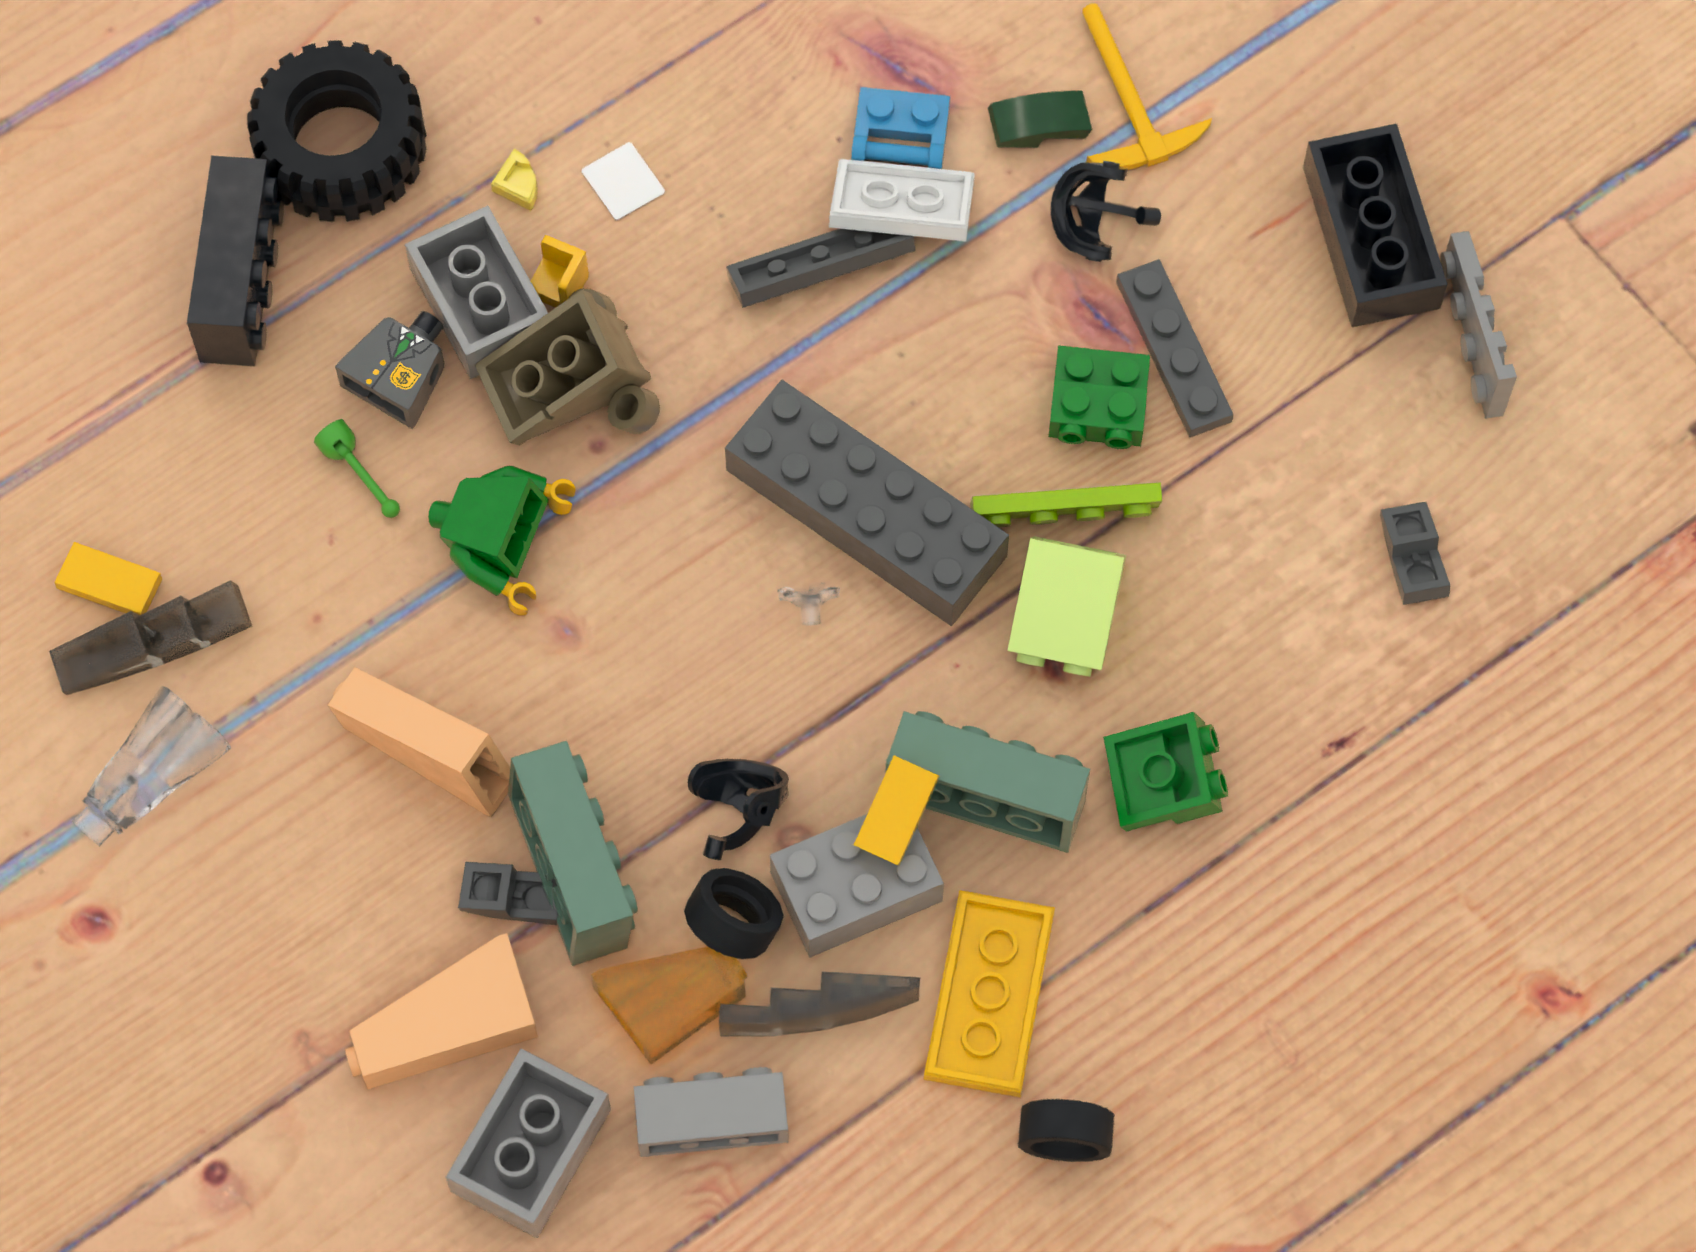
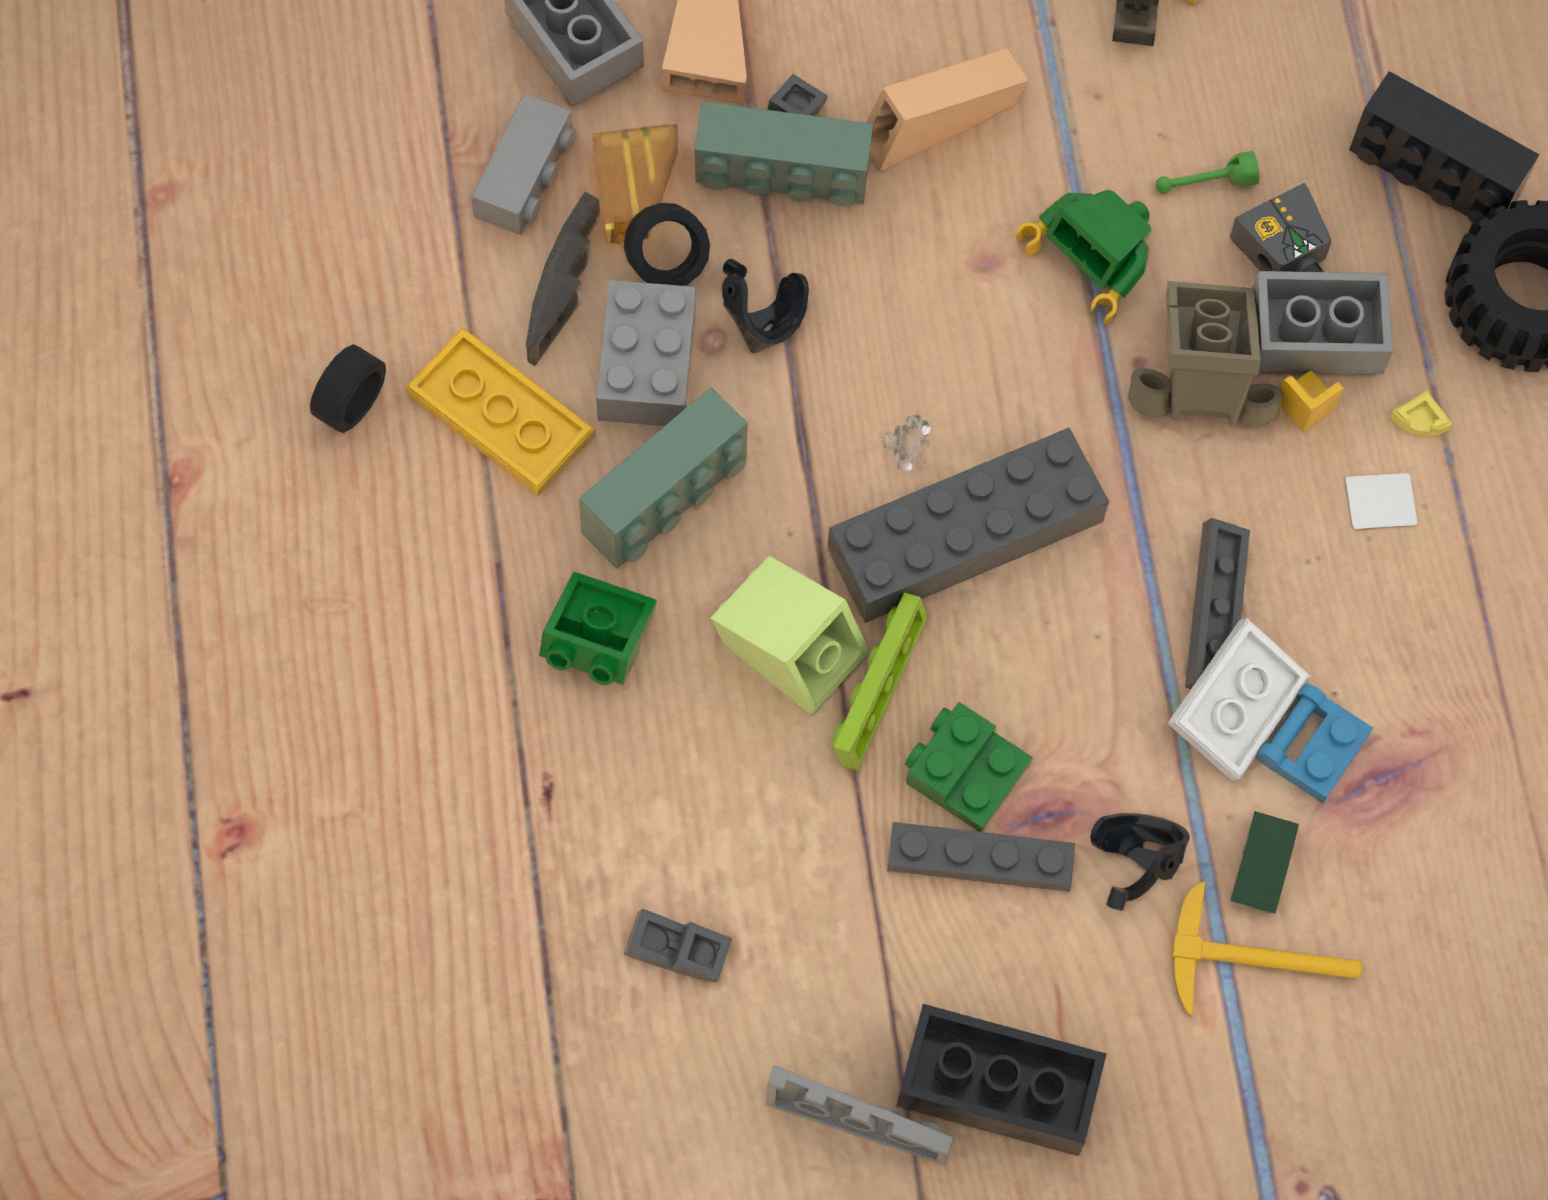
camera: 115 degrees right, 0 degrees up
(896, 810) = (667, 376): yellow tile -> none

